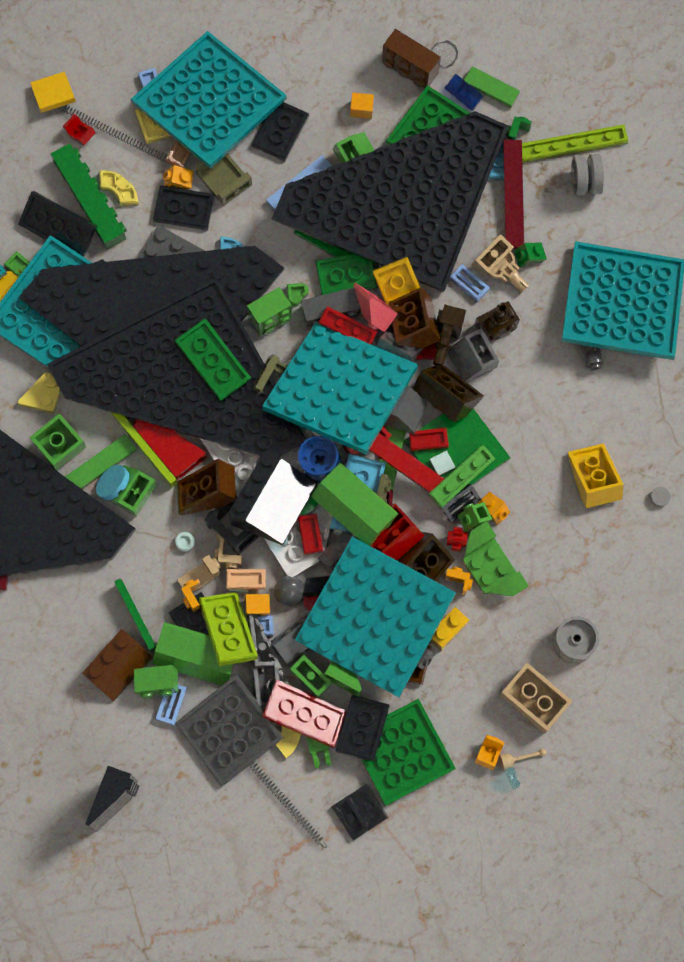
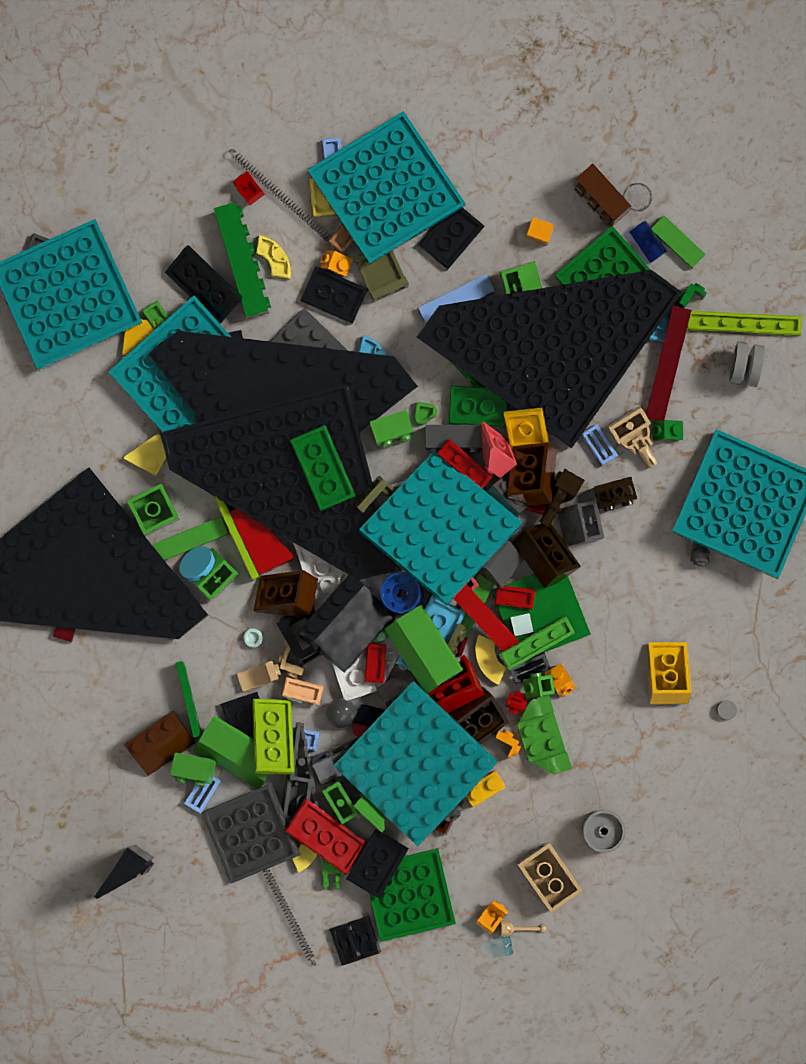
camera: 20 degrees right, 10 degrees up
(52, 92) = (231, 139): yellow tile -> none
(190, 600) = (243, 698): light orange bracket -> none
(257, 604) = (307, 719): light orange panel -> none
(418, 506) = (487, 659): none -> light yellow tile

